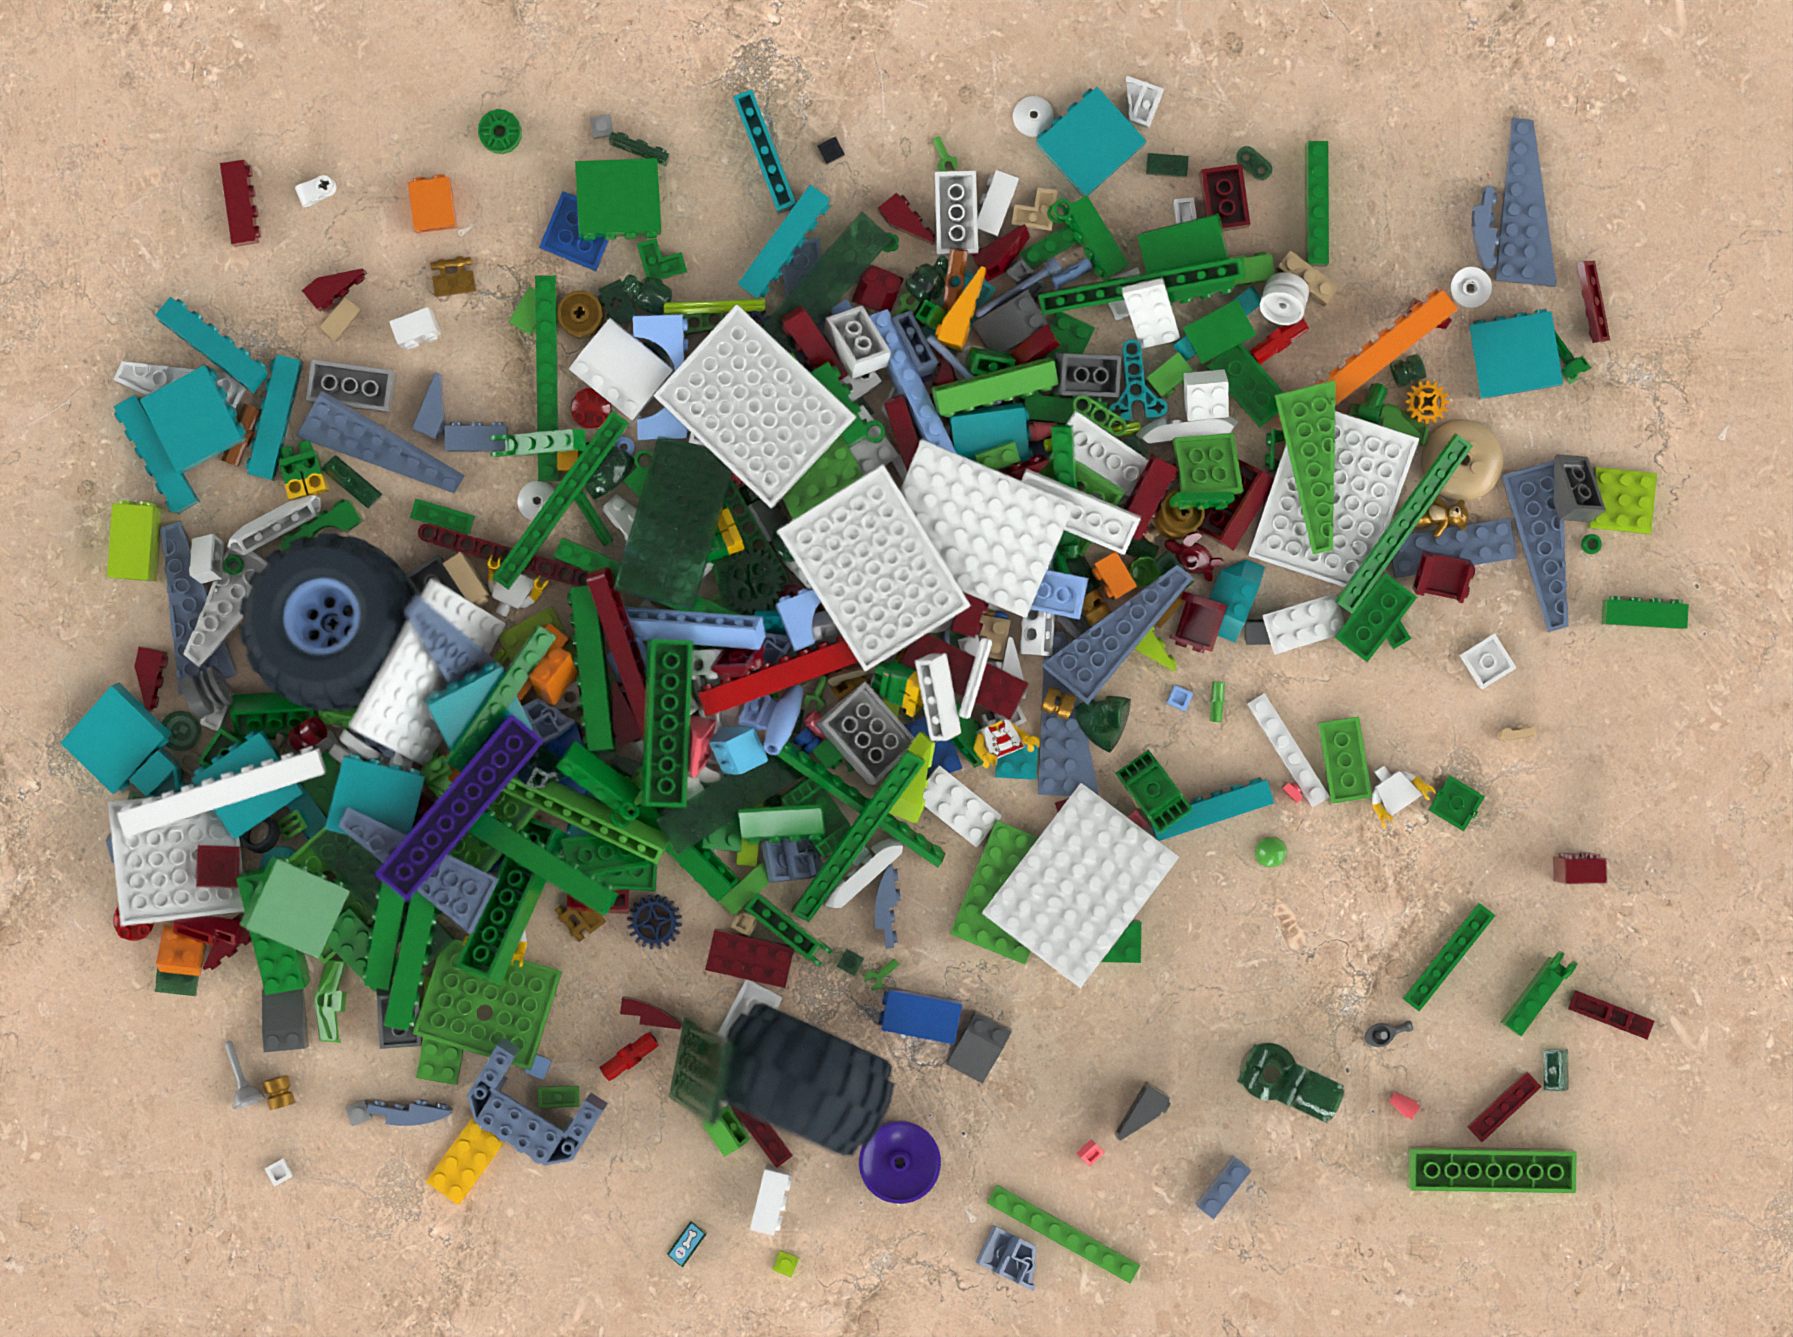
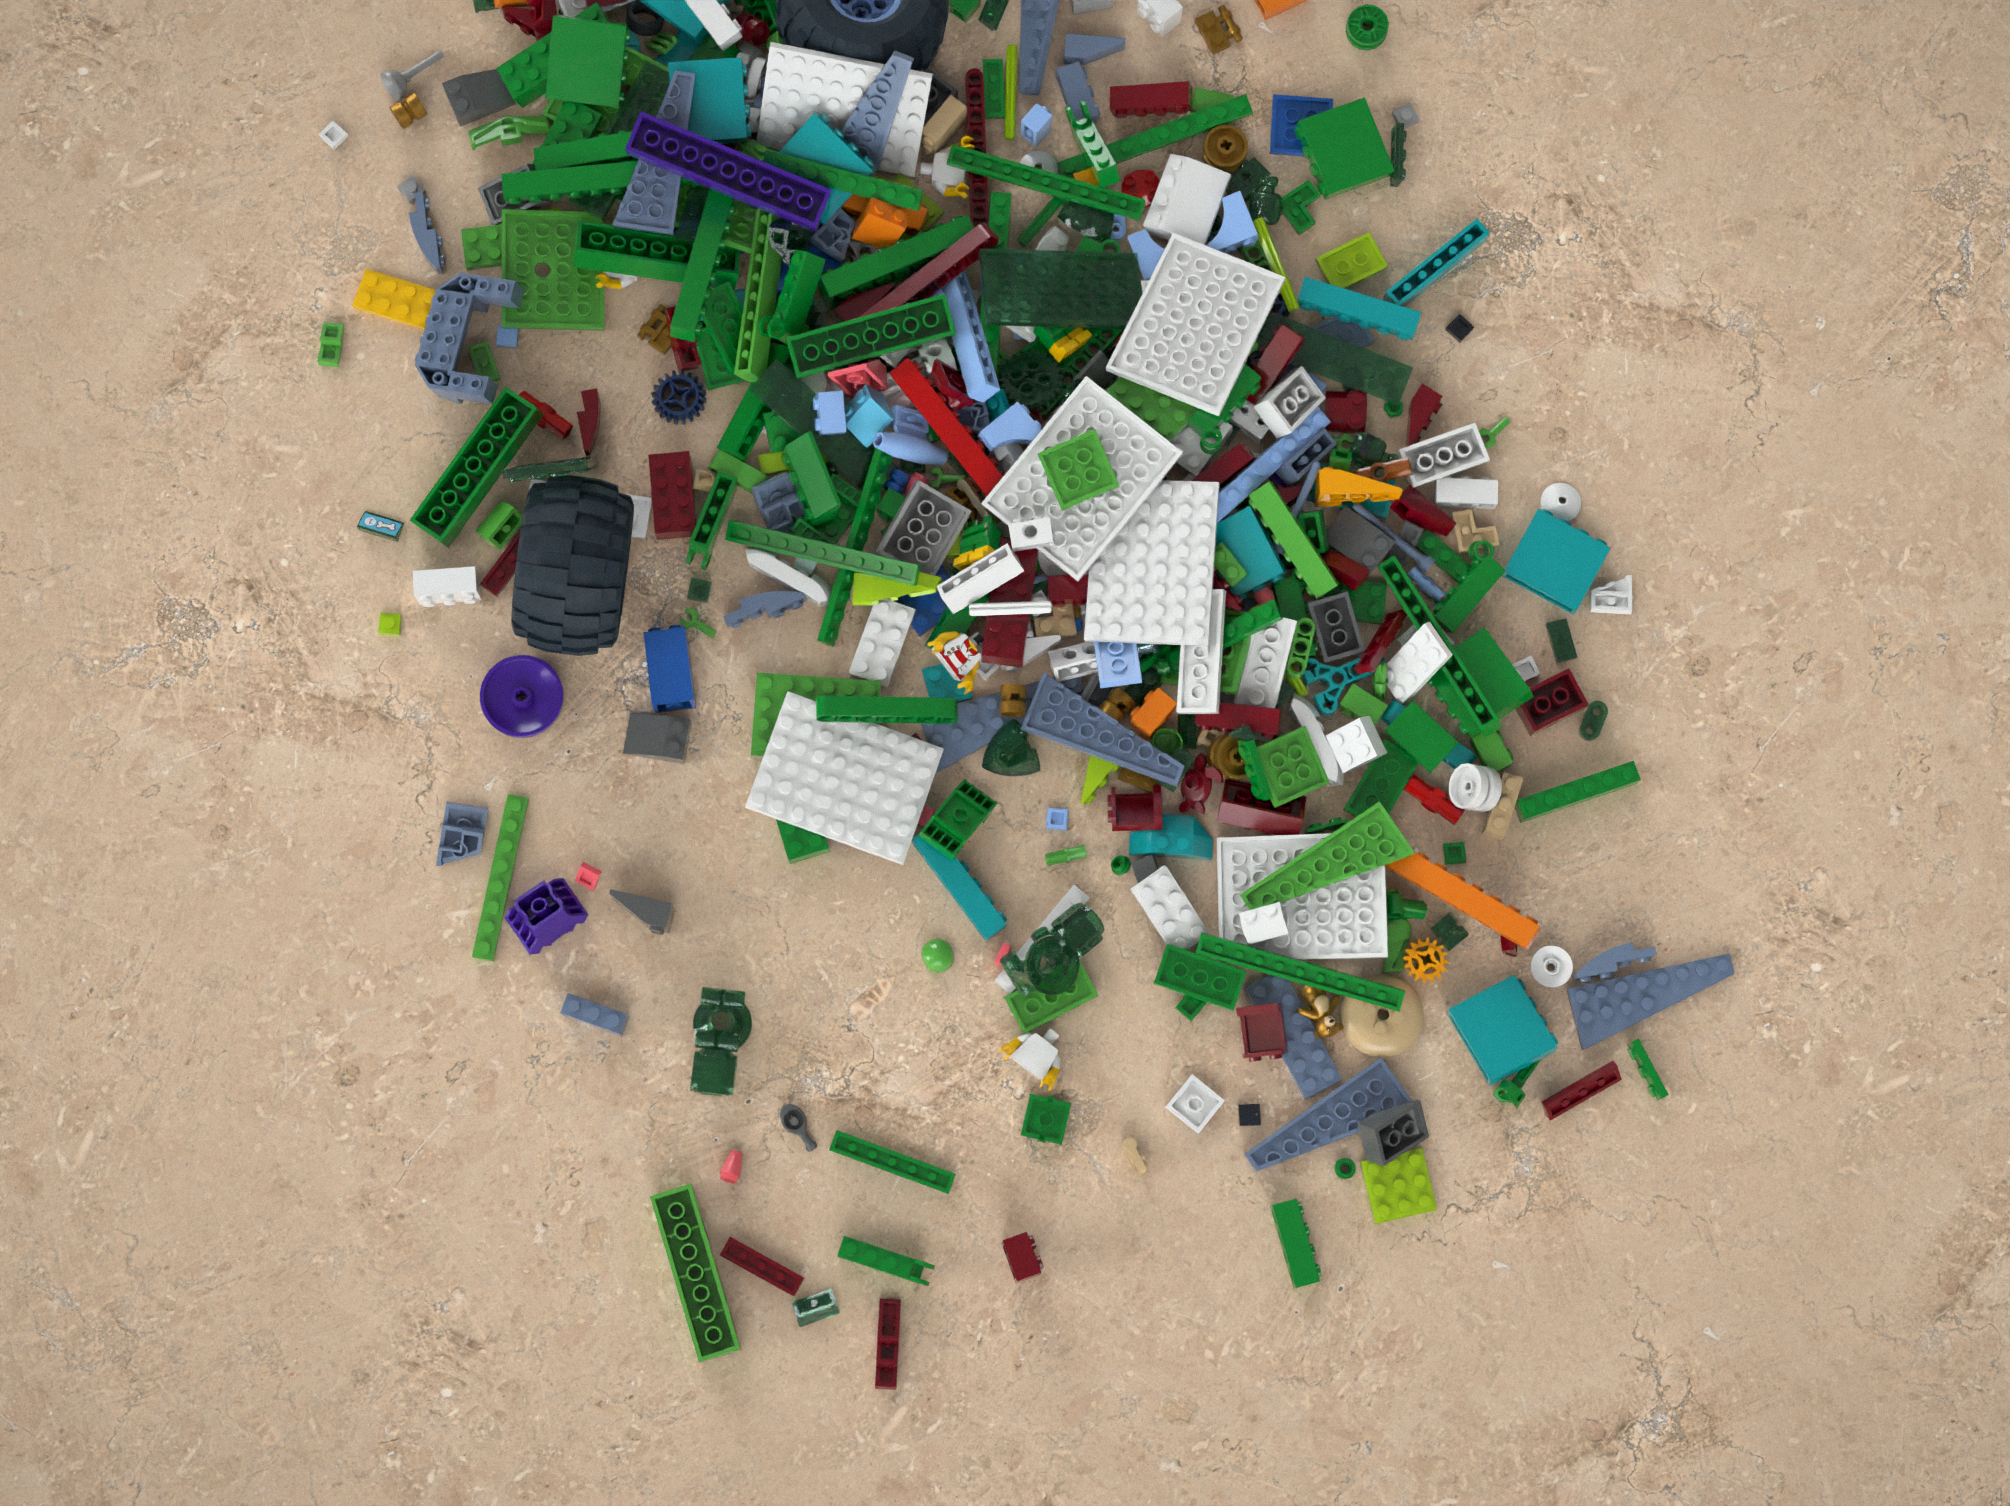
camera: 70 degrees right, 10 degrees down
(451, 501) = (1010, 94): none -> lime axle
(484, 853) = (691, 215): none -> clear green plate
(490, 1237) = (331, 344): none -> bright green slope
(495, 488) = (1036, 124): none -> light blue brick
(506, 368) = (1151, 99): none -> dark red brick
(663, 1136) = (476, 467): none -> green brick
(726, 785) = (829, 413): none -> light blue brick
(733, 231) = (1352, 262): none -> lime plate
(867, 569) = (1078, 470): none -> bright green plate
(915, 647) = (1043, 537): none -> white brick
(1030, 825) = (886, 709): none -> green beam
(1113, 1203) = (545, 914): none -> dark purple slope
(1117, 337) = (1380, 642): none -> dark red plate
(1152, 351) = (1380, 681): none -> bright green axle
(1166, 501) = (1242, 732): none -> clear green slope
(1244, 653) = (1120, 865): none -> green plate
(1300, 725) = (1069, 939): none -> clear green piece
(1334, 338) = (1454, 853): none -> green tile
(1348, 541) = (1263, 923): none -> white brick
(1513, 614) = (1249, 1115): none -> black tile
(1595, 234) = (1647, 1069): none -> green plate

